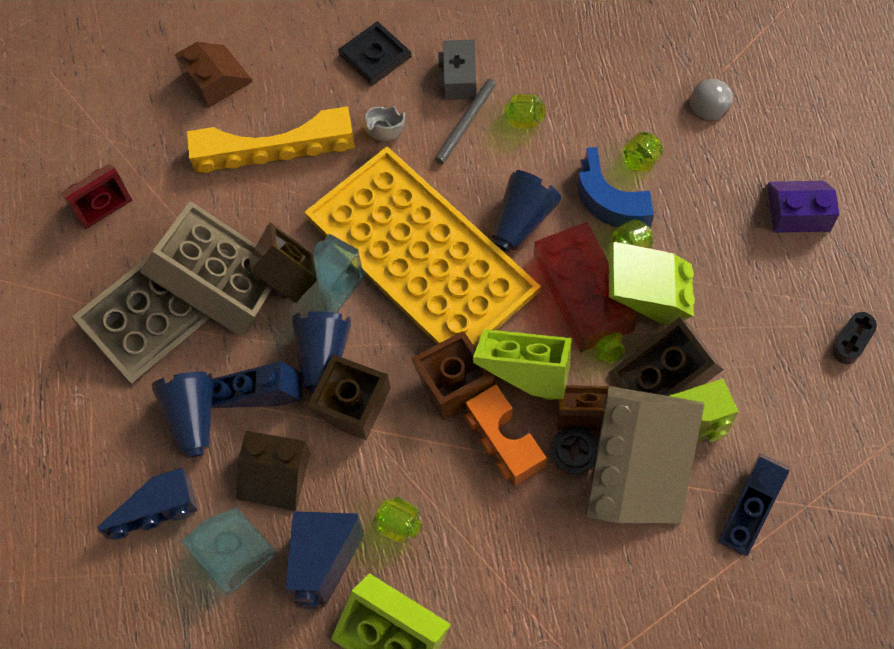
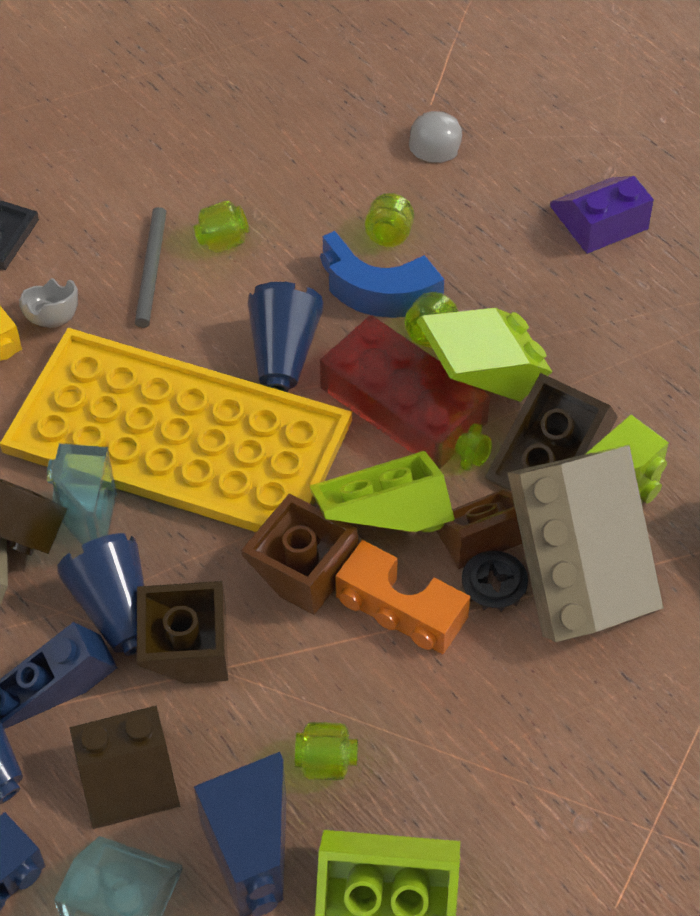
camera: 30 degrees left, 10 degrees down
(459, 69) = (112, 209): dark grey brick -> none

